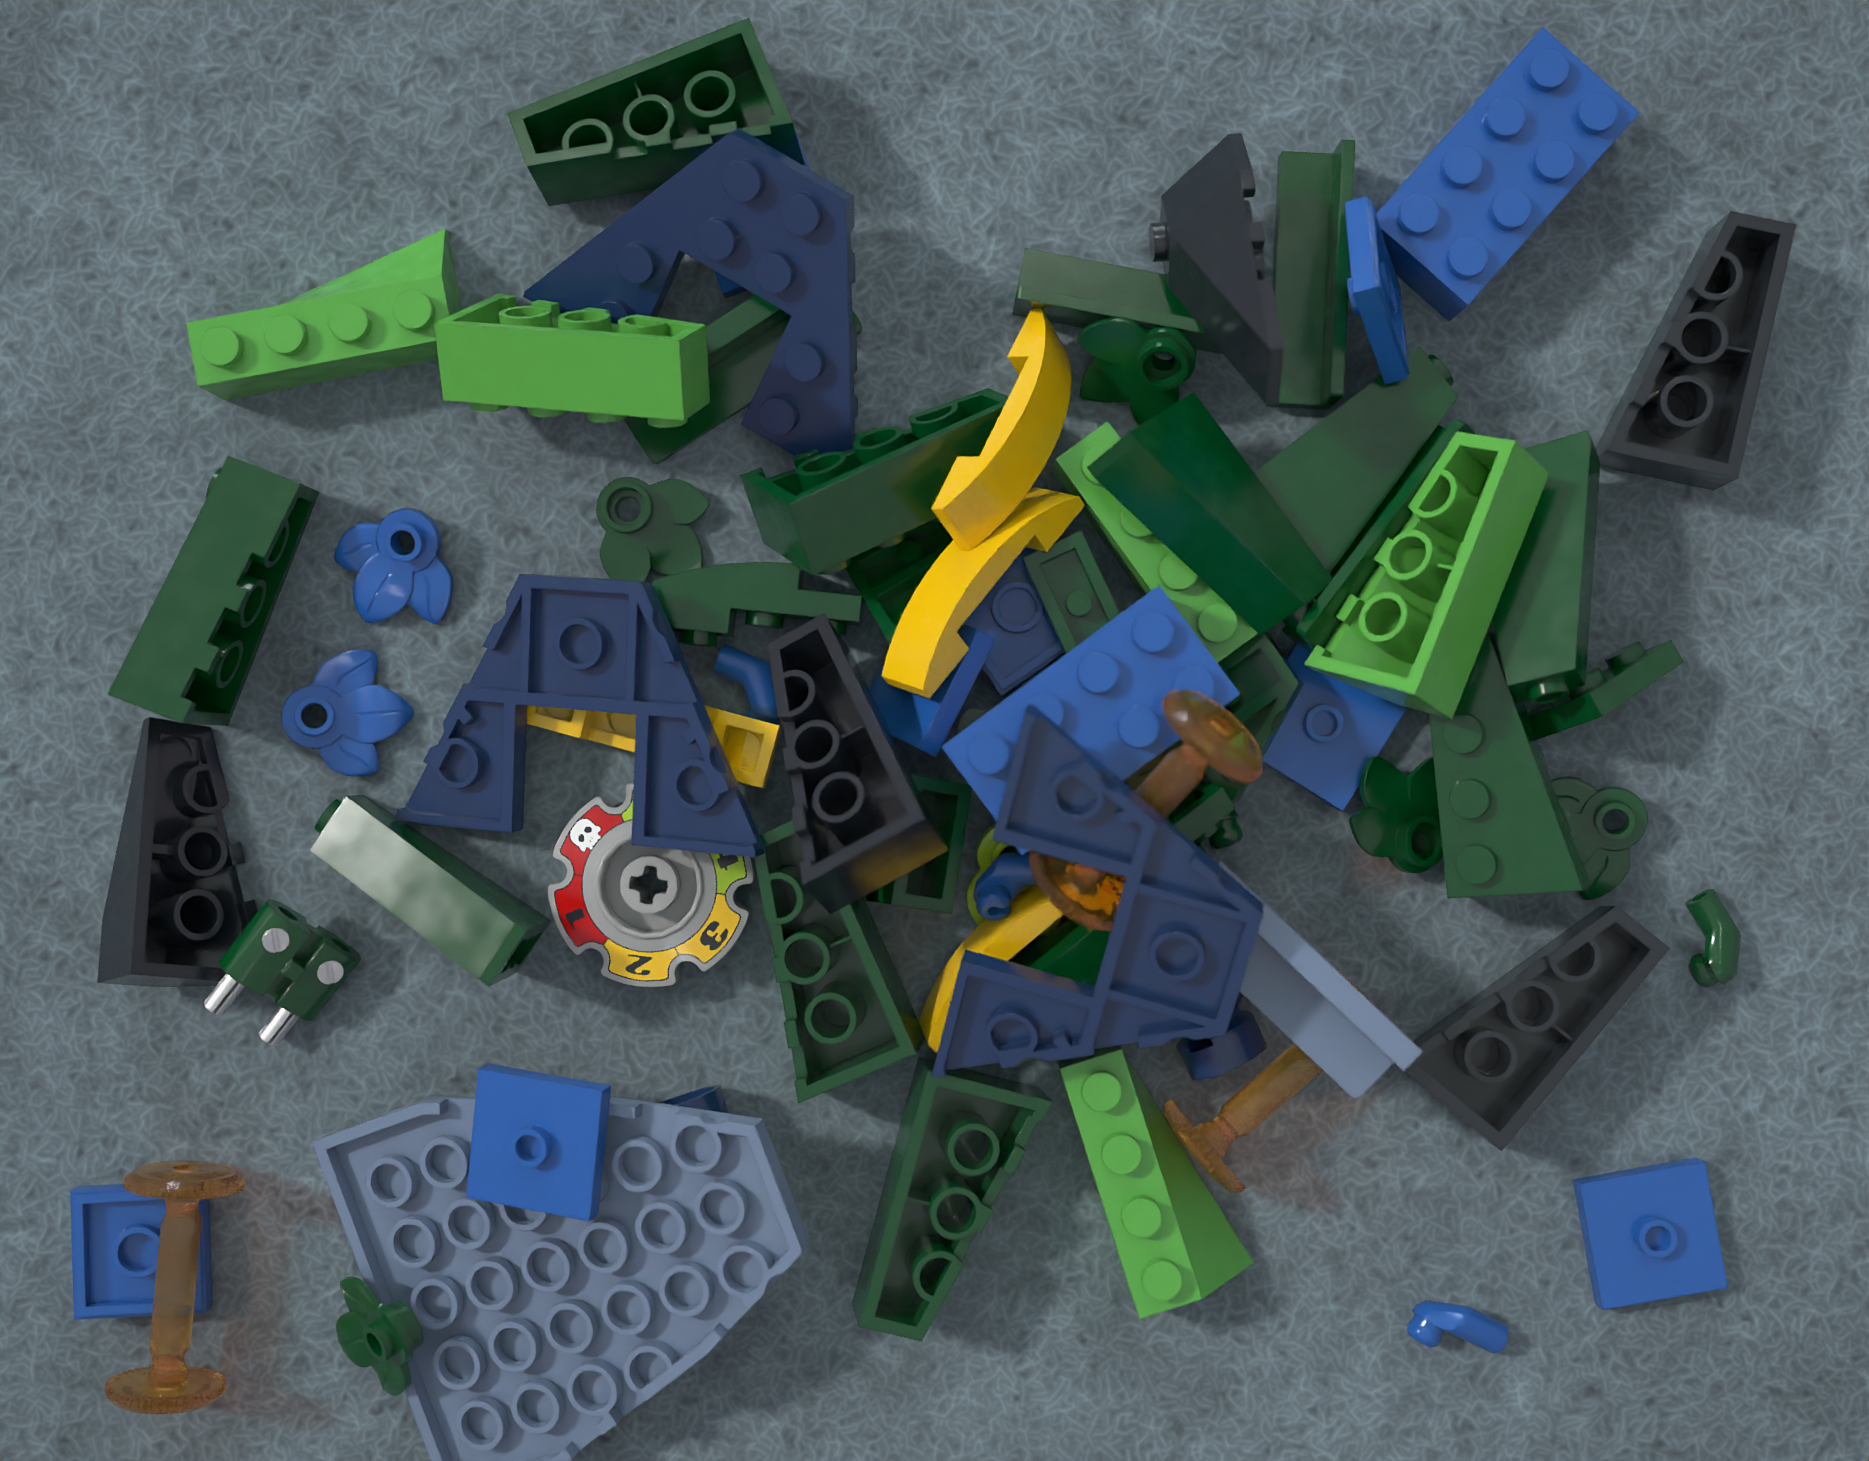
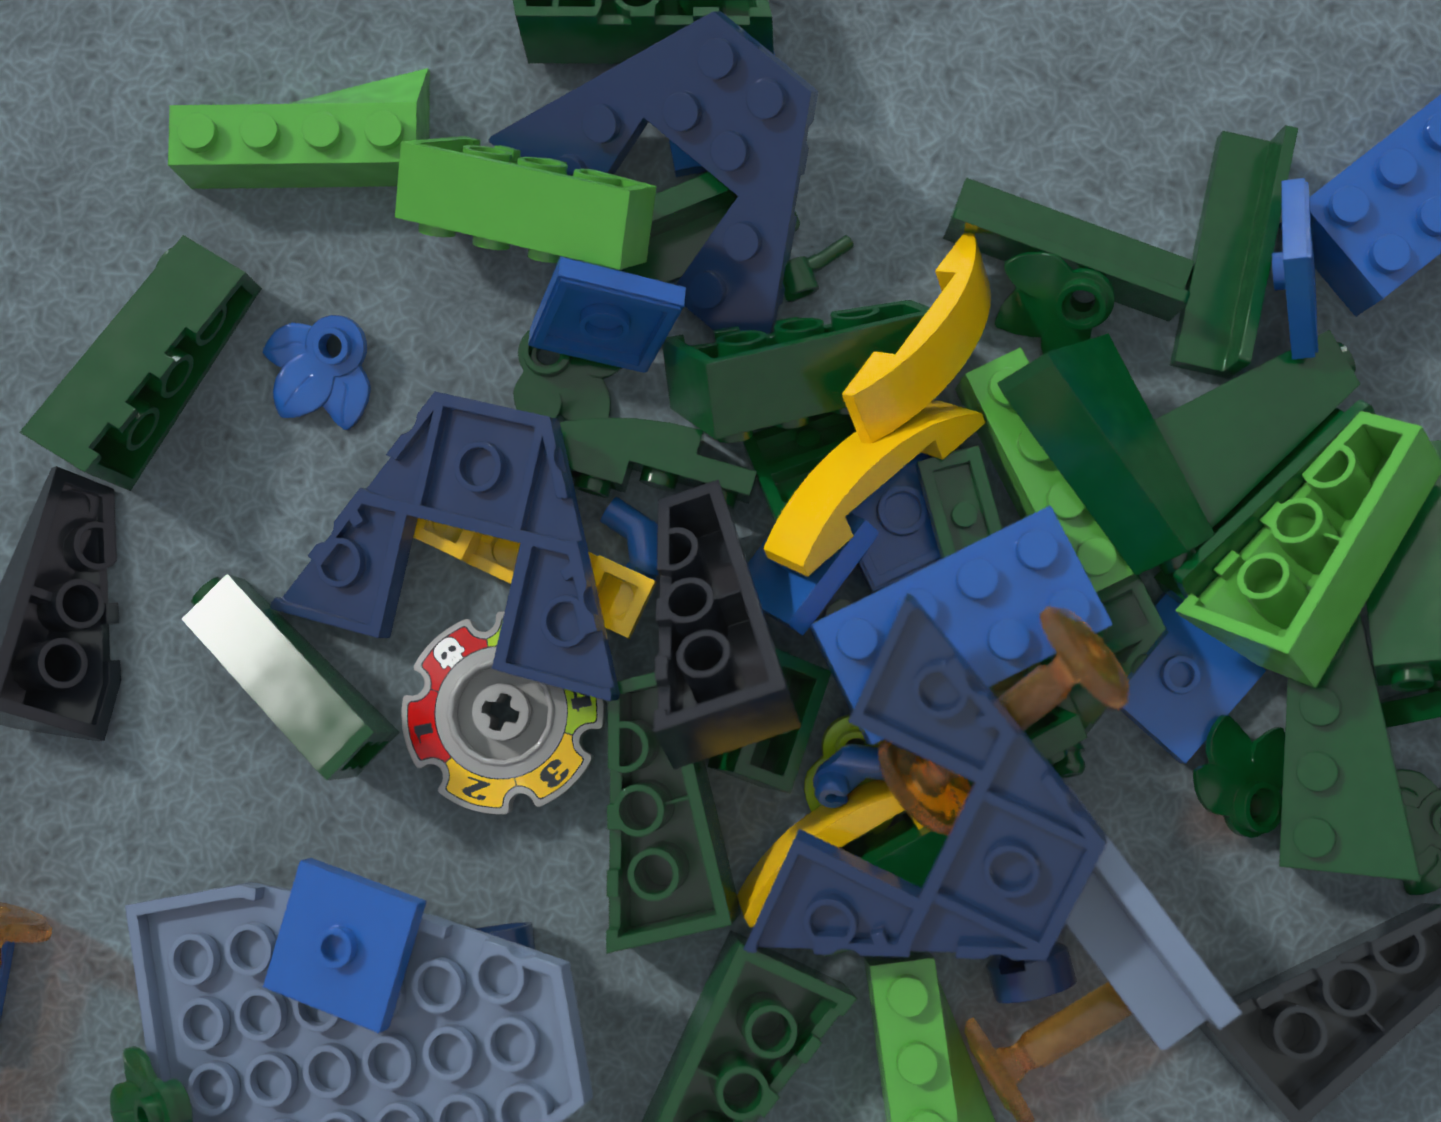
camera: 15 degrees right, 5 degrees down
(286, 960) = (137, 724): dark green piece -> none
(355, 711) = (253, 499): blue plate -> none
(678, 465) = (605, 315): none -> blue plate
(869, 380) = (799, 272): none -> dark green hand
(1218, 264) = (1151, 218): black wedge -> none

